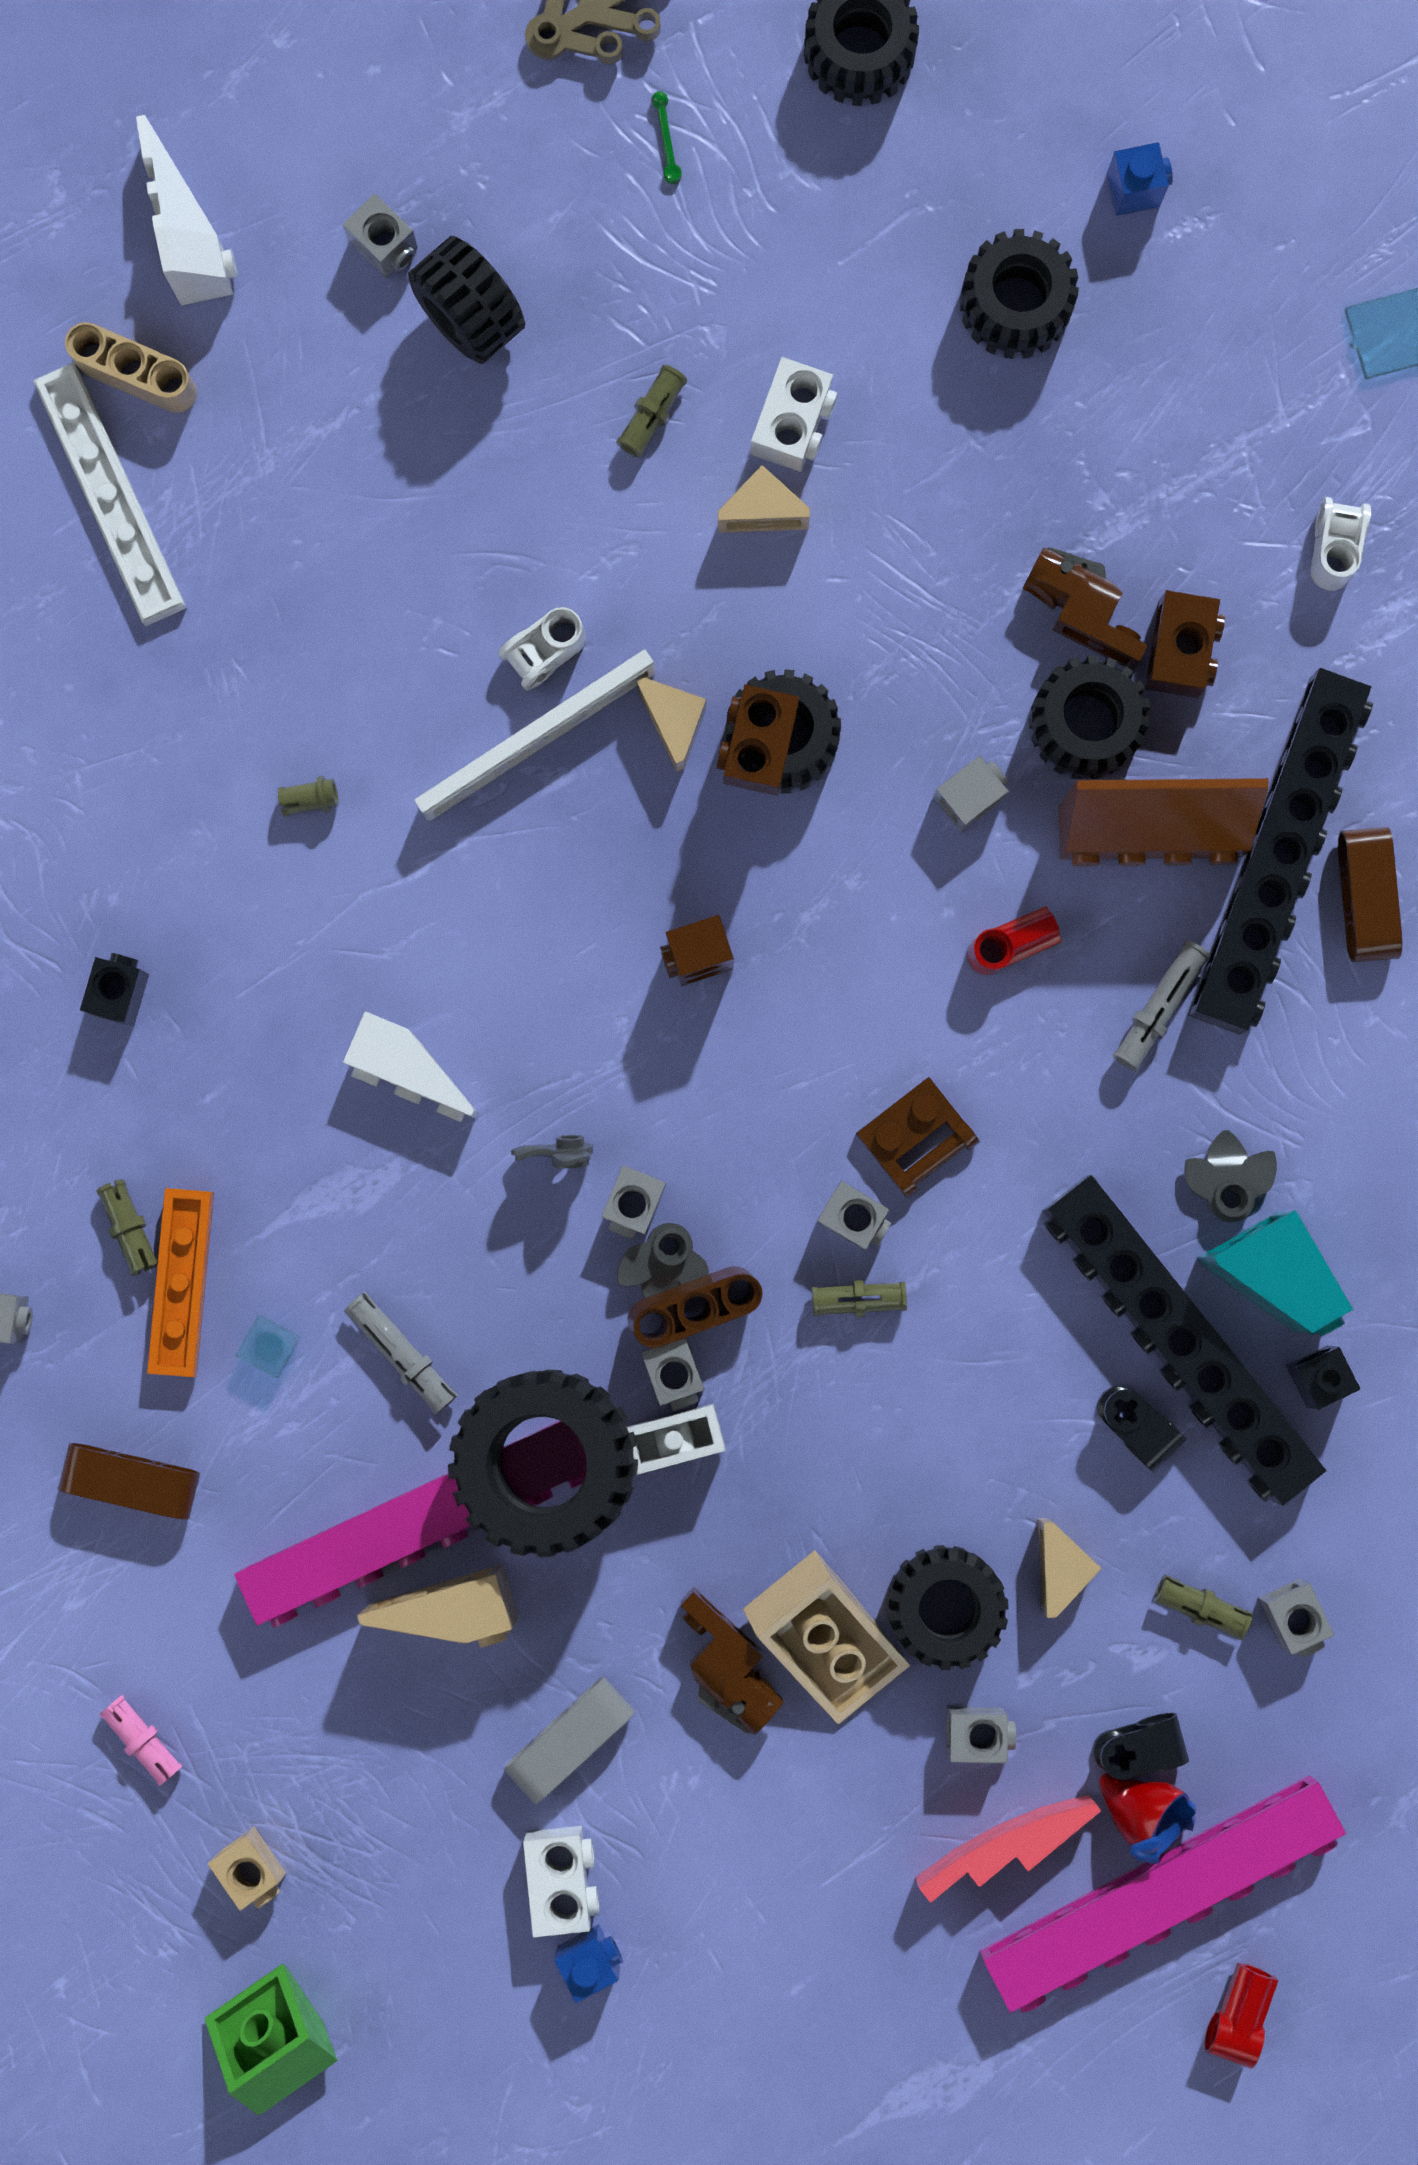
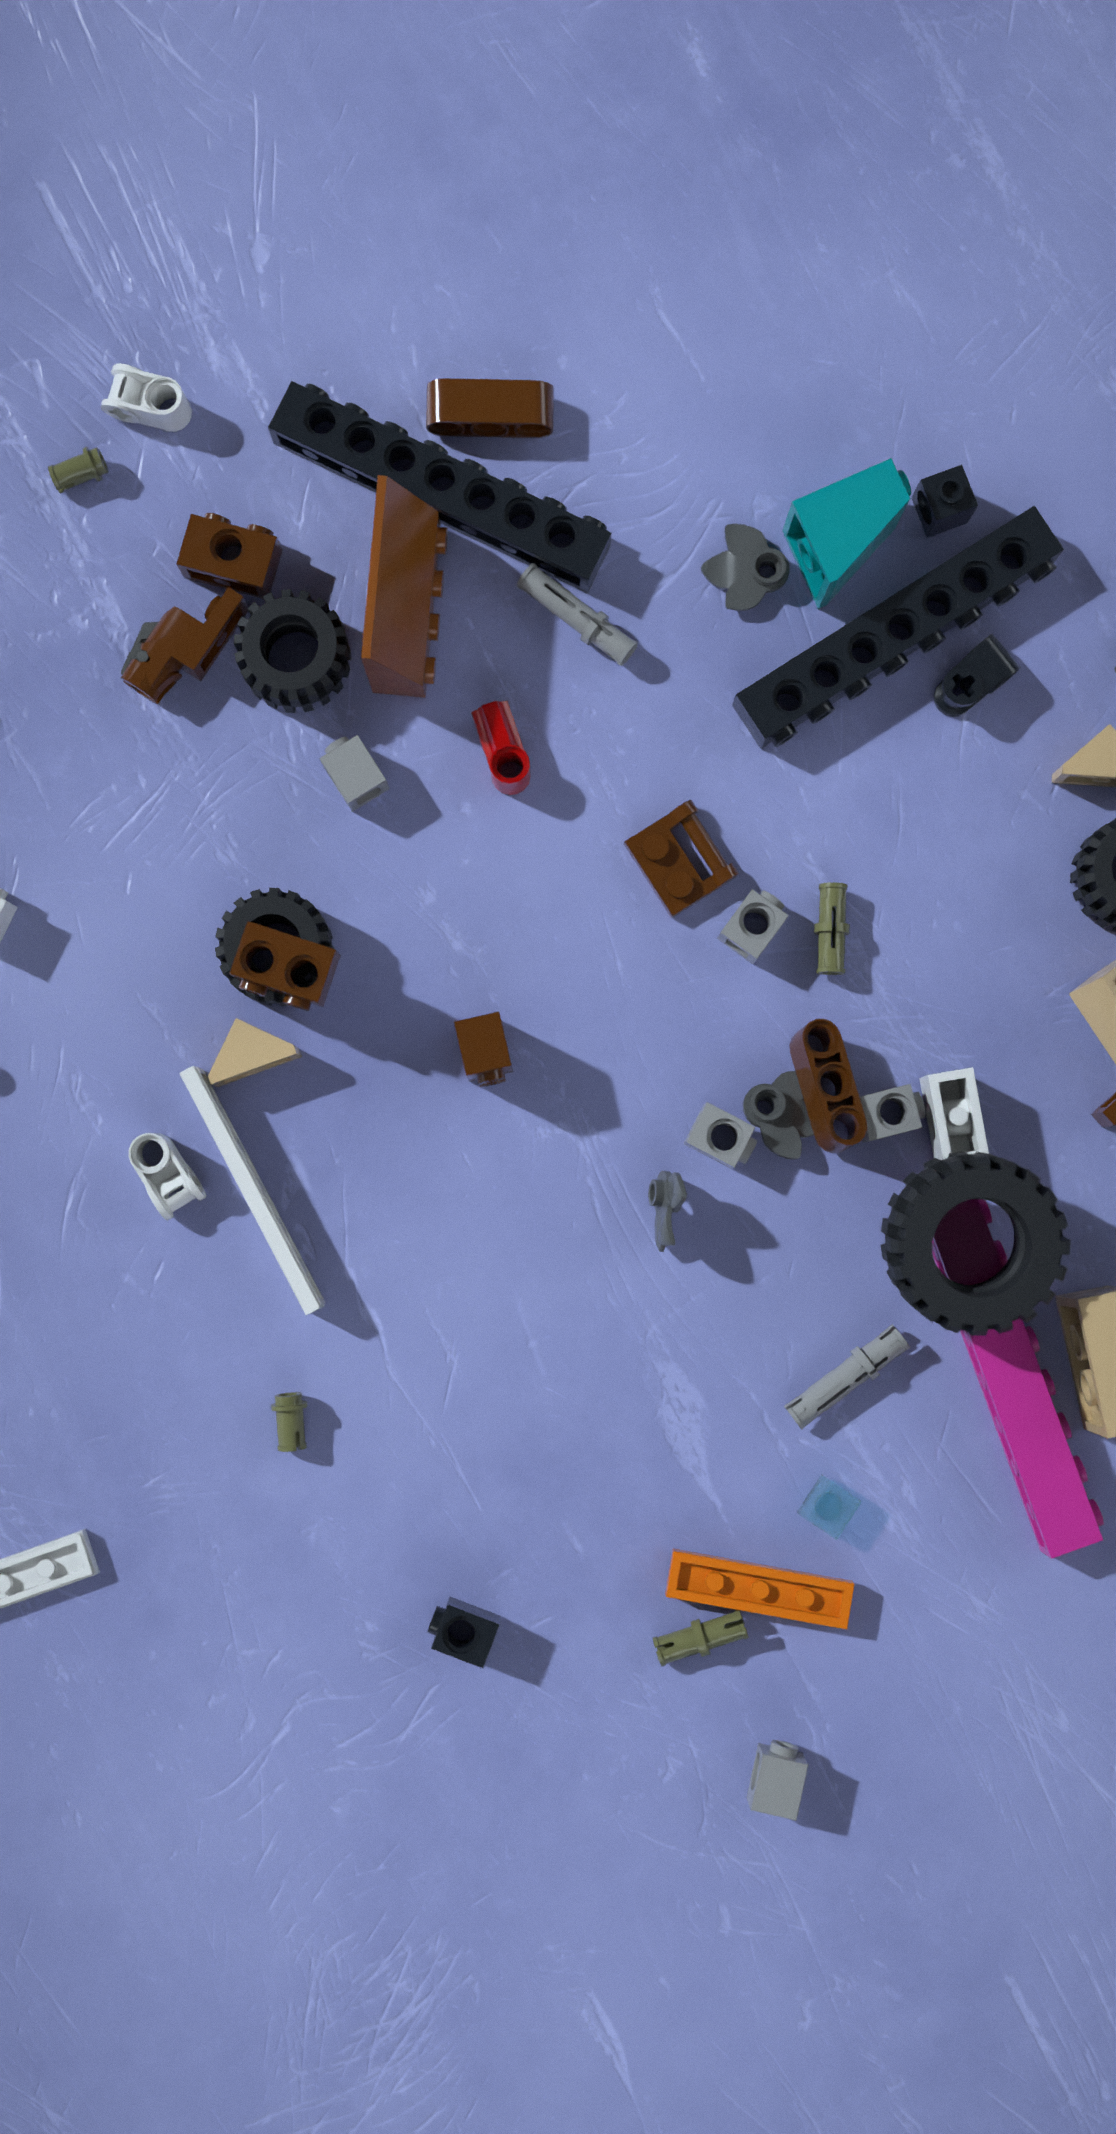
camera: 90 degrees left, 0 degrees up
(129, 1481) = (949, 1656): reddish brown beam -> none
(398, 1057) = (559, 1352): white slope -> none
(763, 505) = (48, 944): tan slope -> none
(1257, 482) = (78, 469): none -> olive pin

